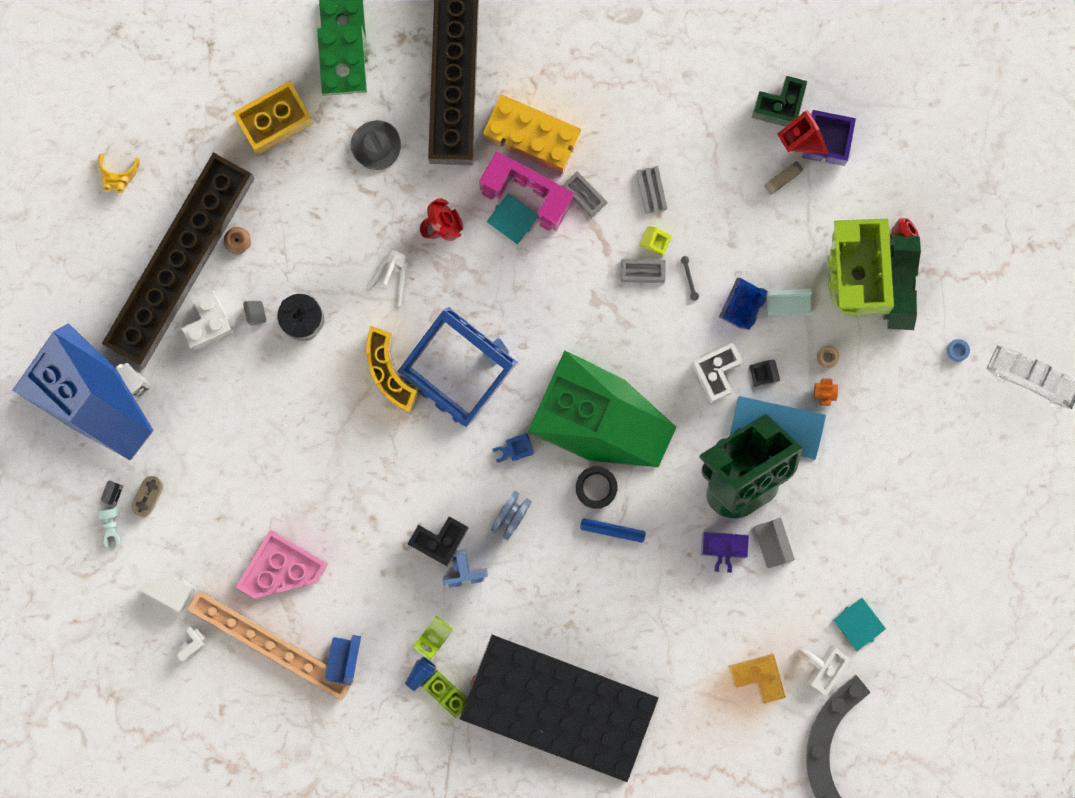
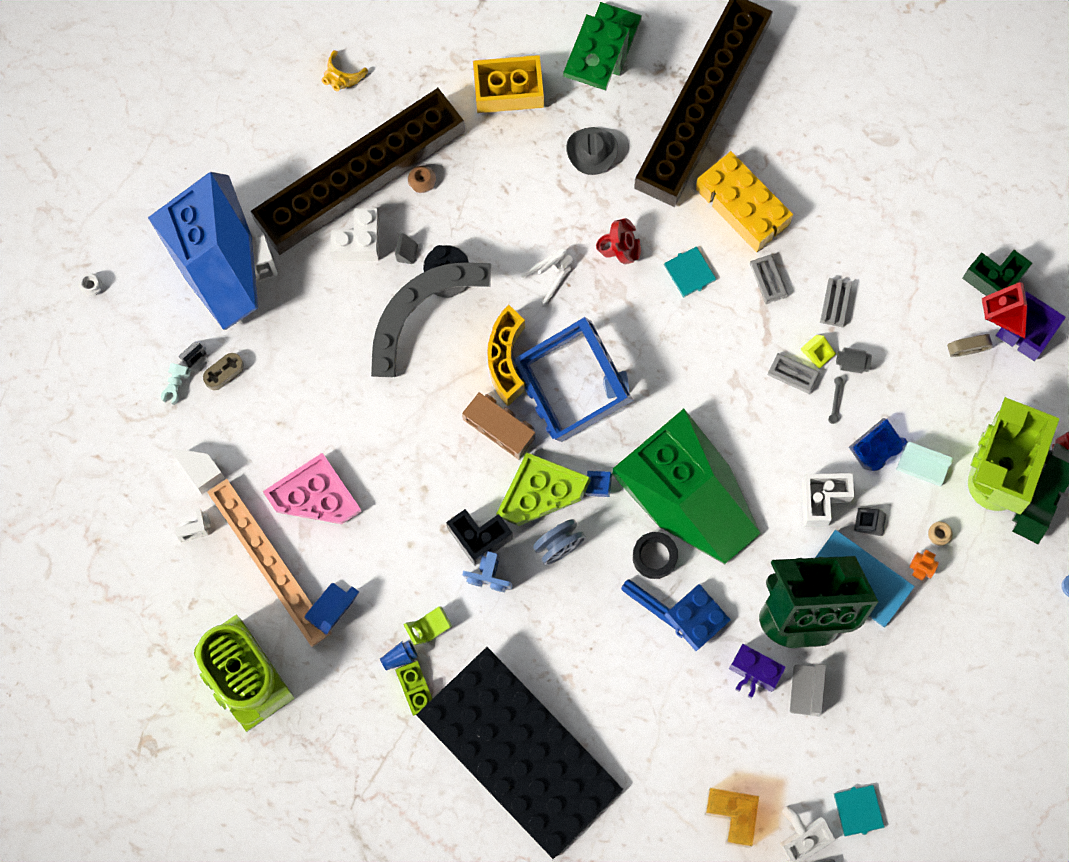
camera: 25 degrees right, 10 degrees down
(280, 359) = (407, 300): none -> dark grey plate
(315, 757) = (255, 688): none -> lime brick
(411, 434) = (499, 425): none -> medium nougat brick
(473, 476) = (540, 490): none -> lime plate
(499, 174) = (701, 220): dark pink plate -> none
(655, 525) = (697, 617): none -> blue plate
(690, 236) = (854, 360): none -> dark grey brick

